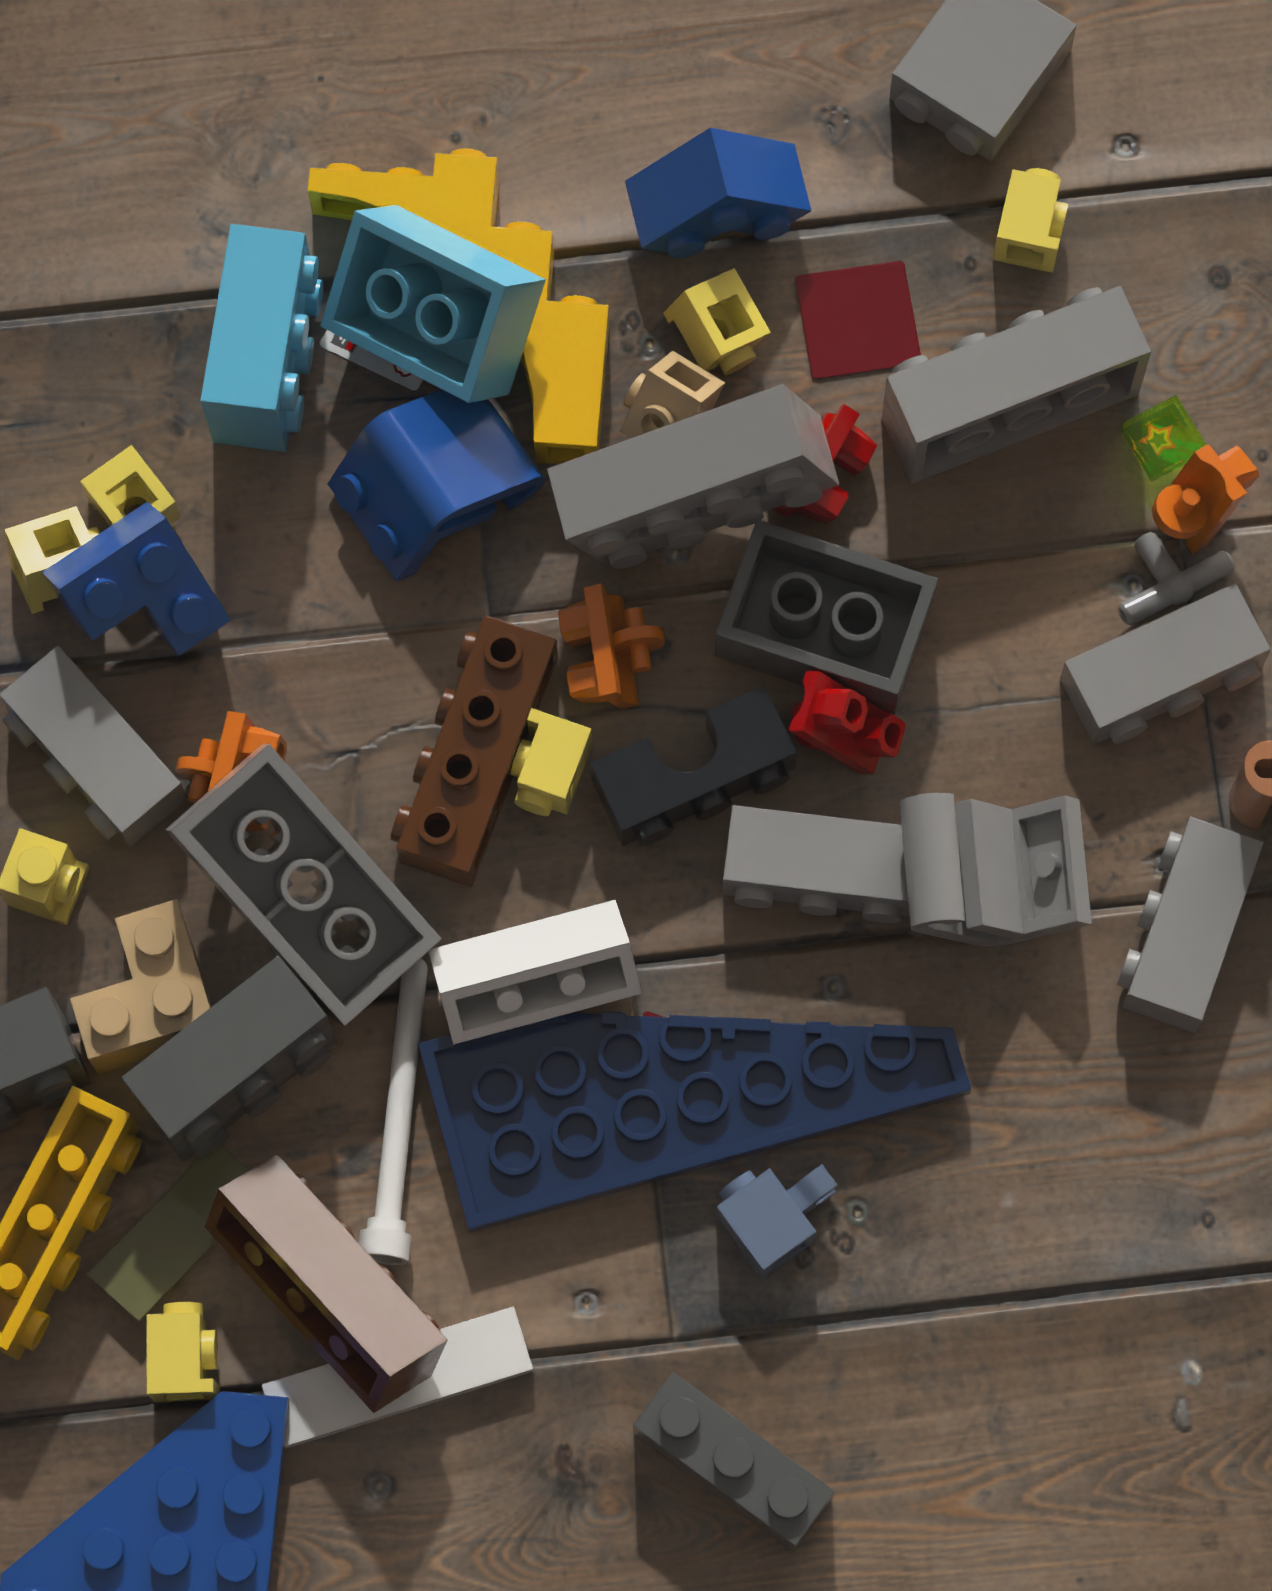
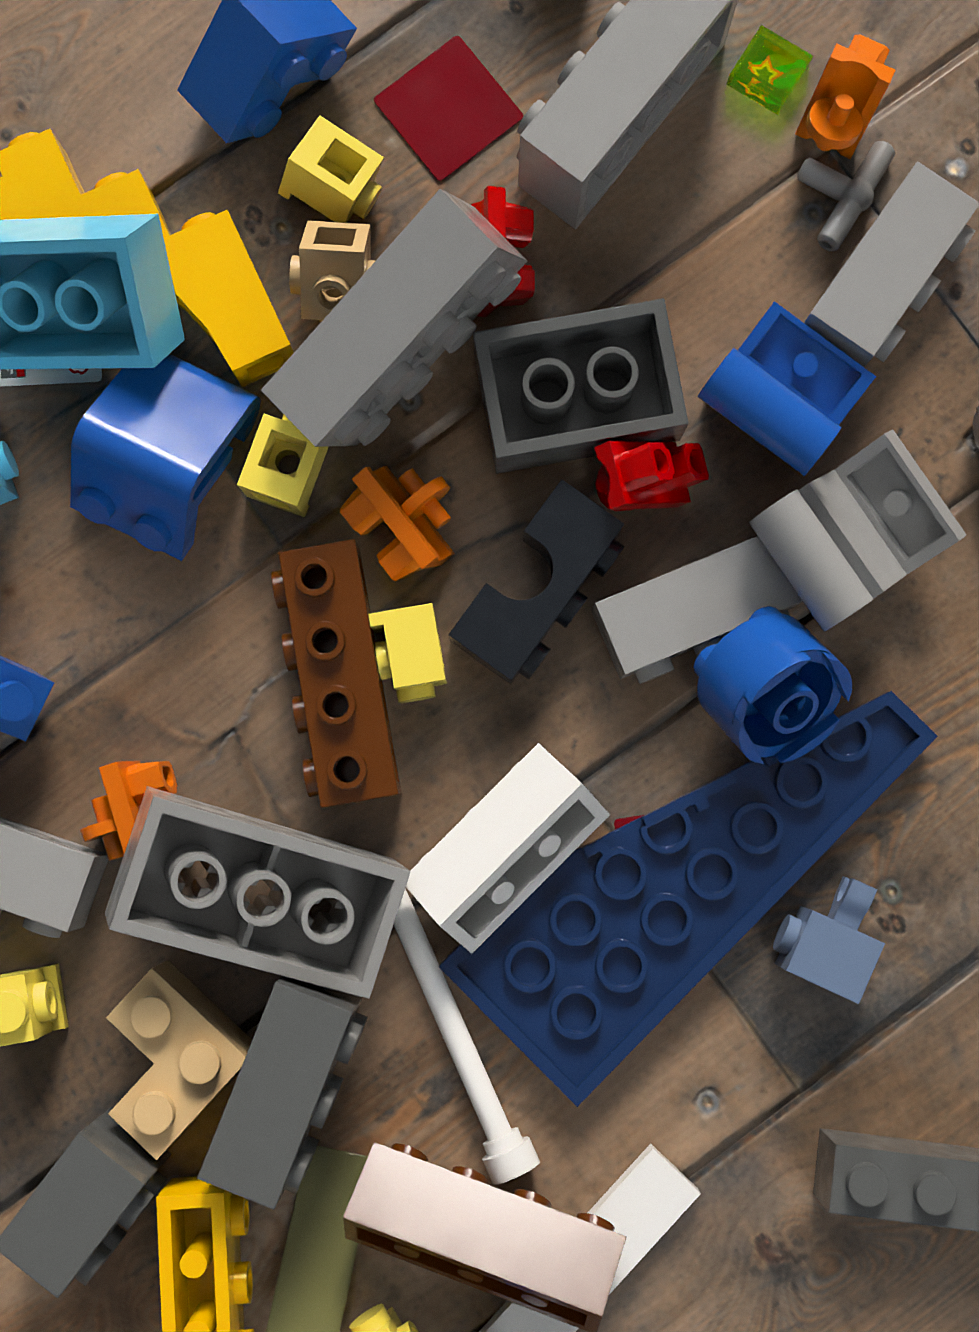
camera: 30 degrees left, 10 degrees up
(508, 543) = (261, 474): none -> light yellow brick
(843, 959) = (772, 686): none -> blue brick
(1005, 718) = (787, 388): none -> blue piece

